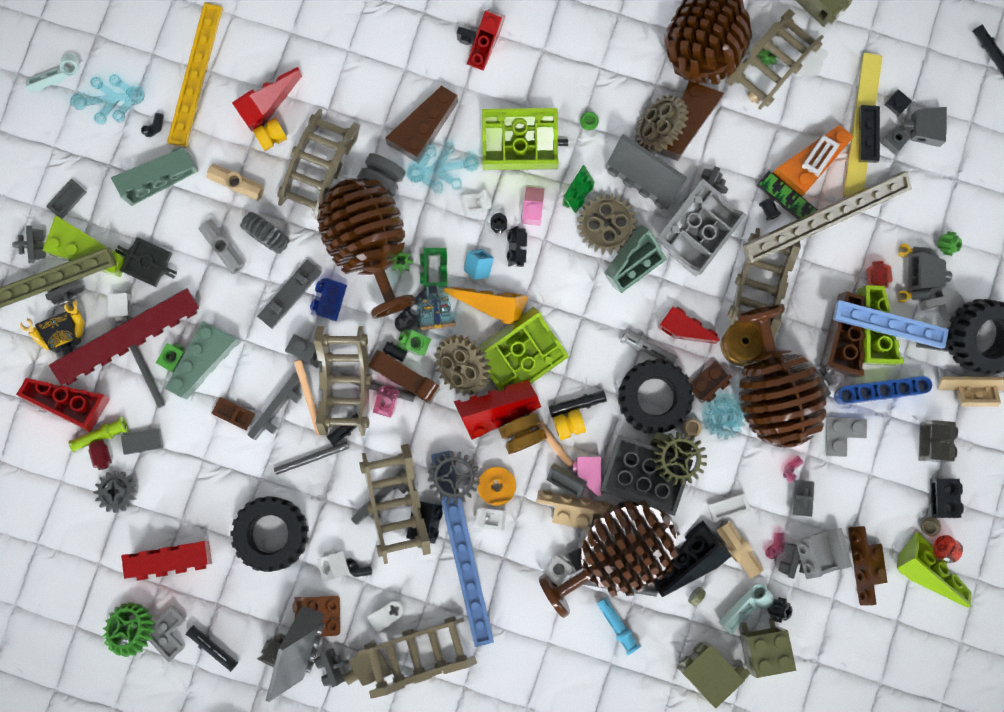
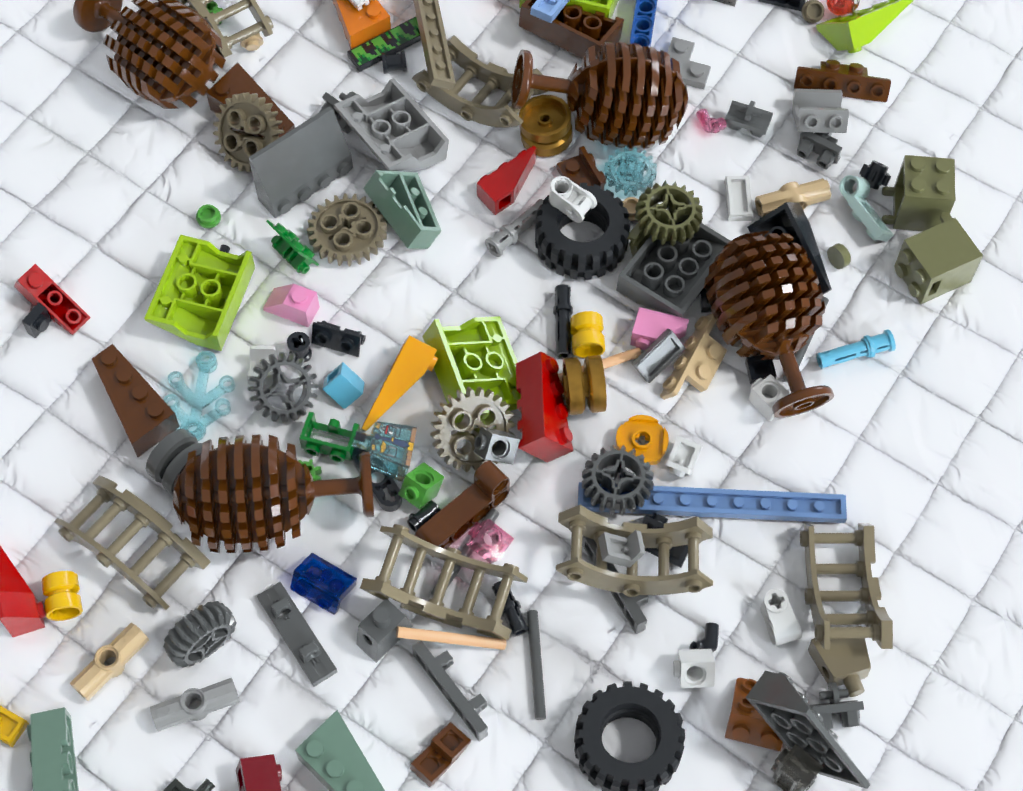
camera: 75 degrees left, 20 degrees down
(393, 494) = (621, 550): none -> light grey bracket
(447, 214) = (278, 377): none -> dark grey gear
(452, 385) = (504, 450): none -> dark grey brick
(667, 383) = (574, 201): none -> white piece
(777, 547) = (799, 162): clear pink arm -> none

